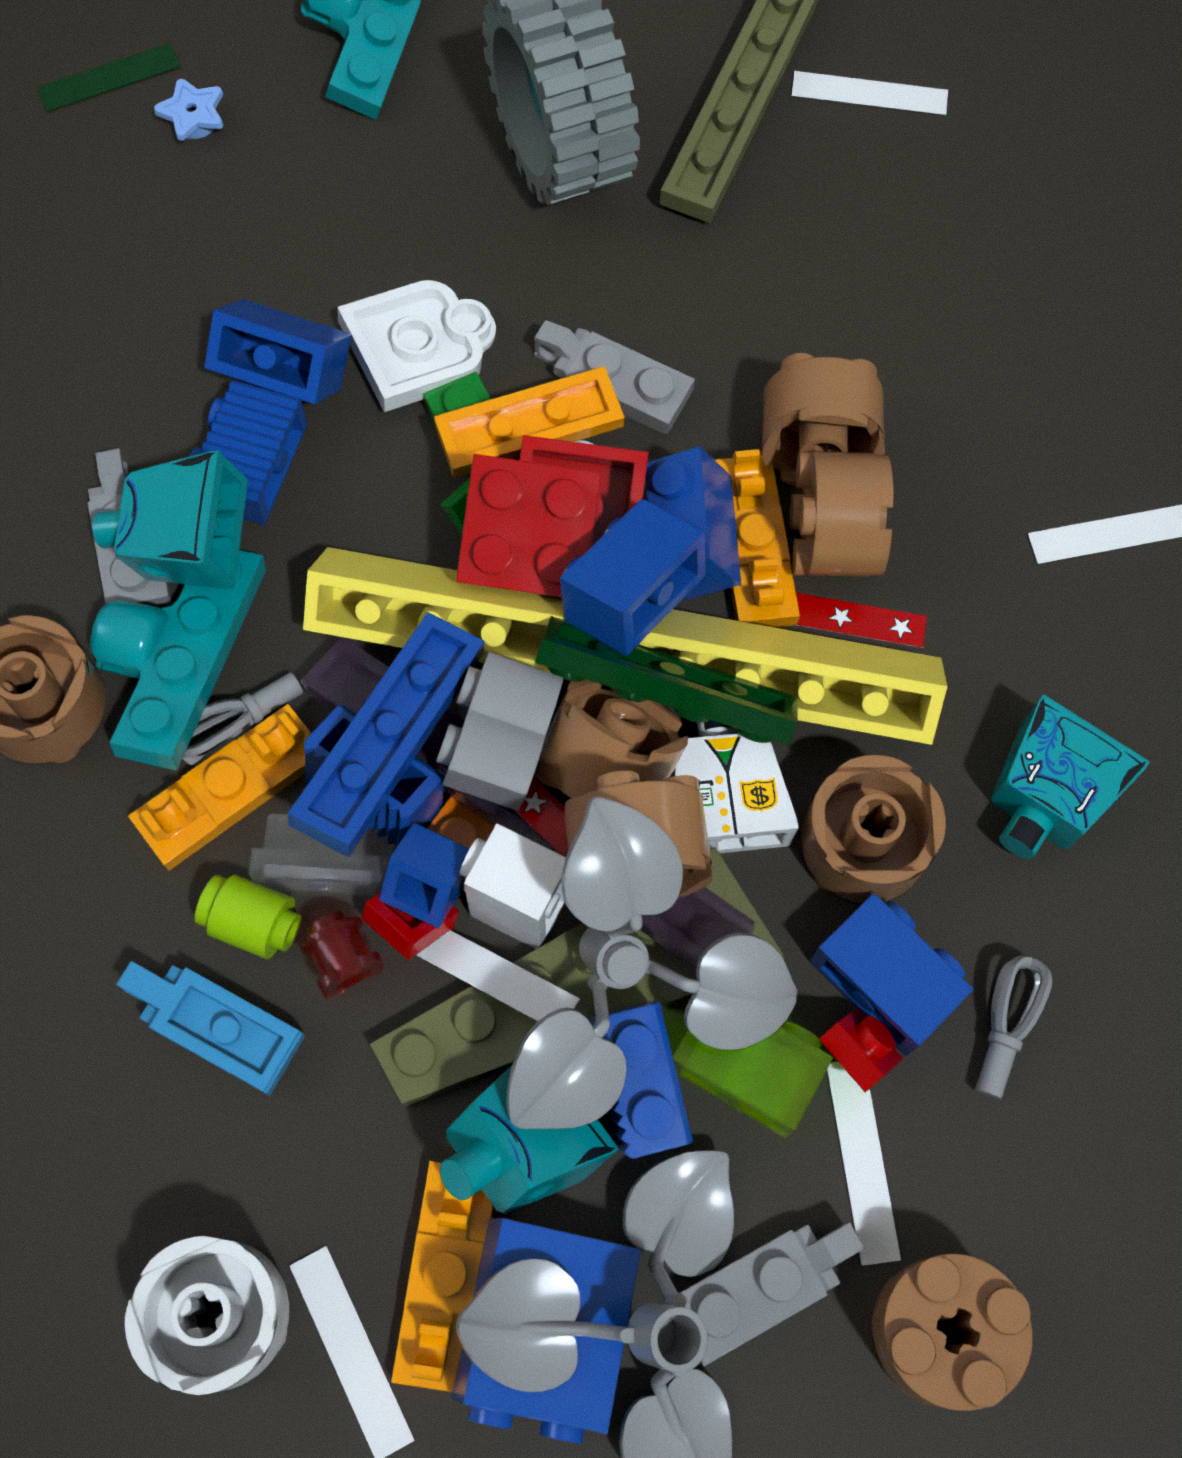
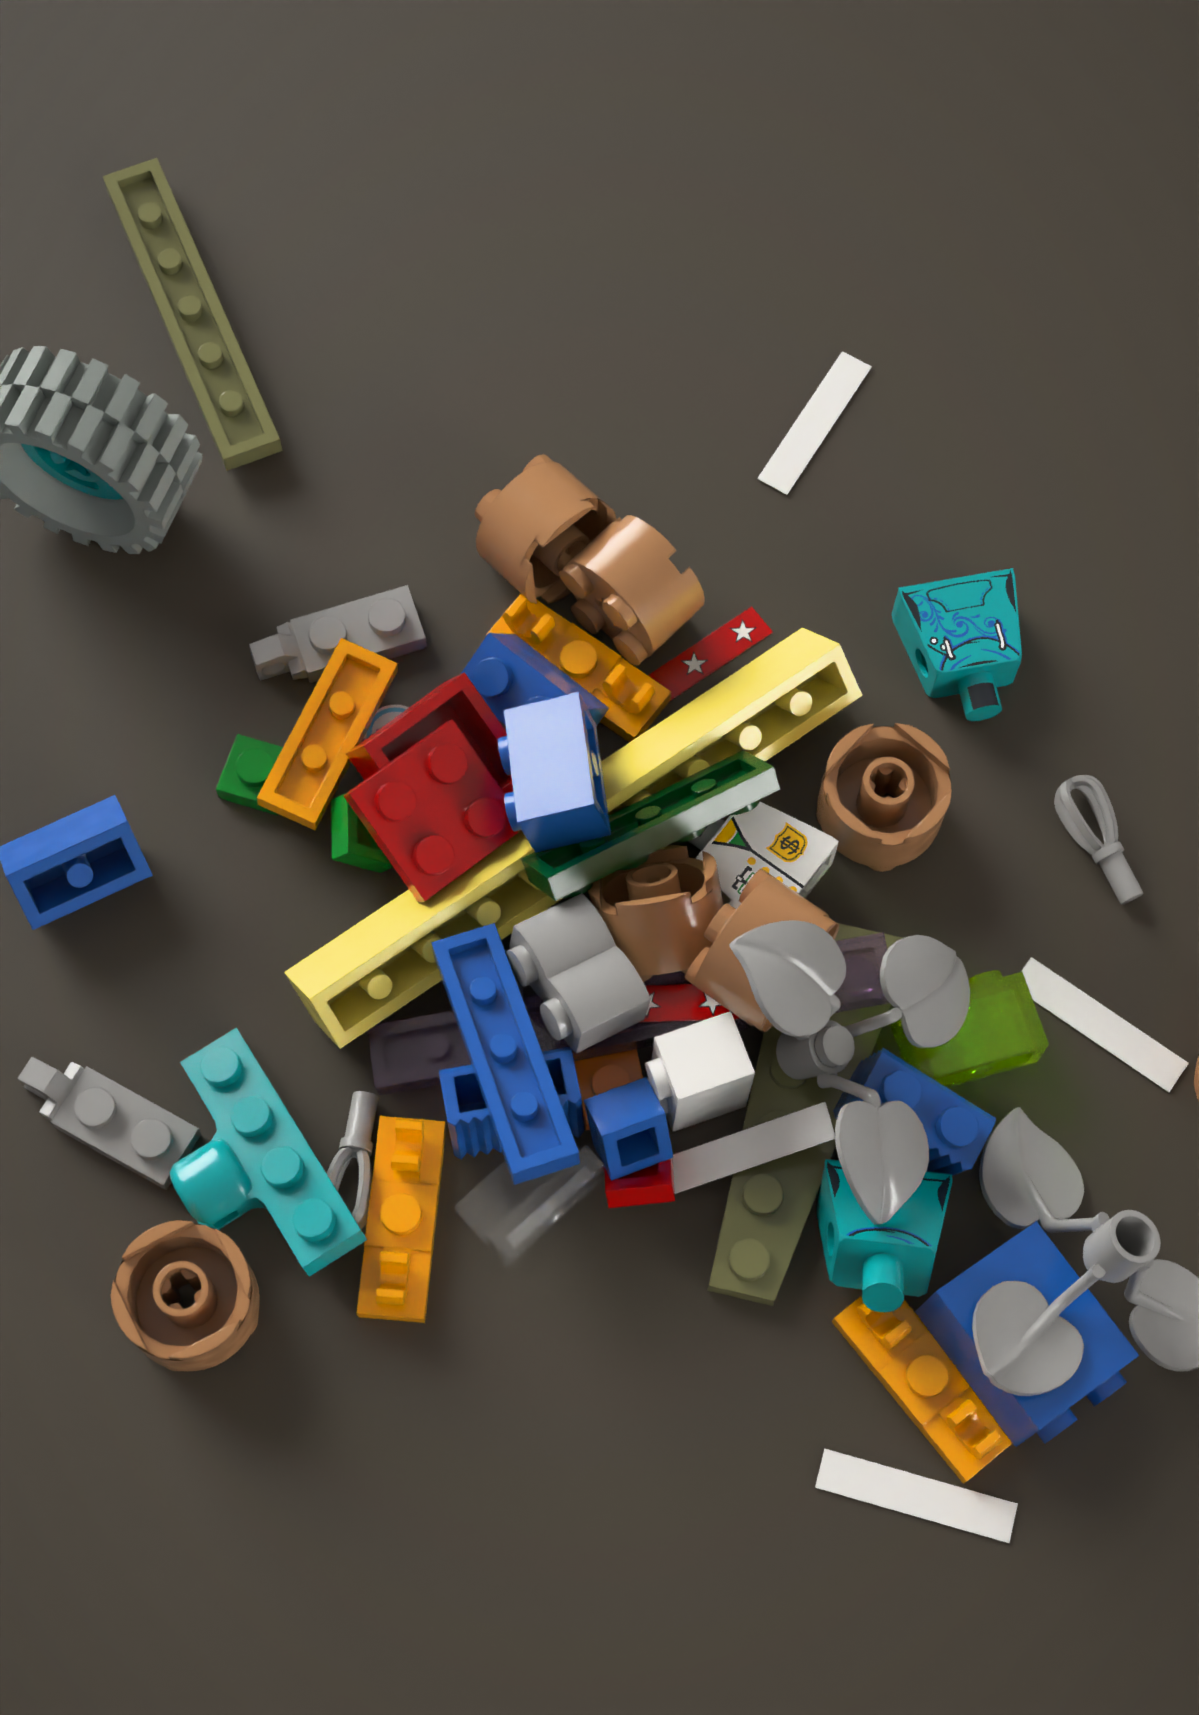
camera: 45 degrees left, 0 degrees up
(171, 1295) = (846, 1546): white brick -> none
(179, 521) = (163, 1062): teal torso -> none
(214, 1024) = (587, 1385): dark azure hinge -> none
(248, 915) = (528, 1288): lime brick -> none
(259, 437) = (135, 963): blue brick -> none
(340, 953) = (620, 1246): clear red brick -> none
(416, 339) = (162, 753): white plate -> none
(768, 1286) = (1129, 1153): light grey hinge -> none
(862, 1047) = (1028, 948): red plate -> none
(870, 92) = (286, 233): white sticker -> none
(892, 972) = (995, 880): blue brick -> none

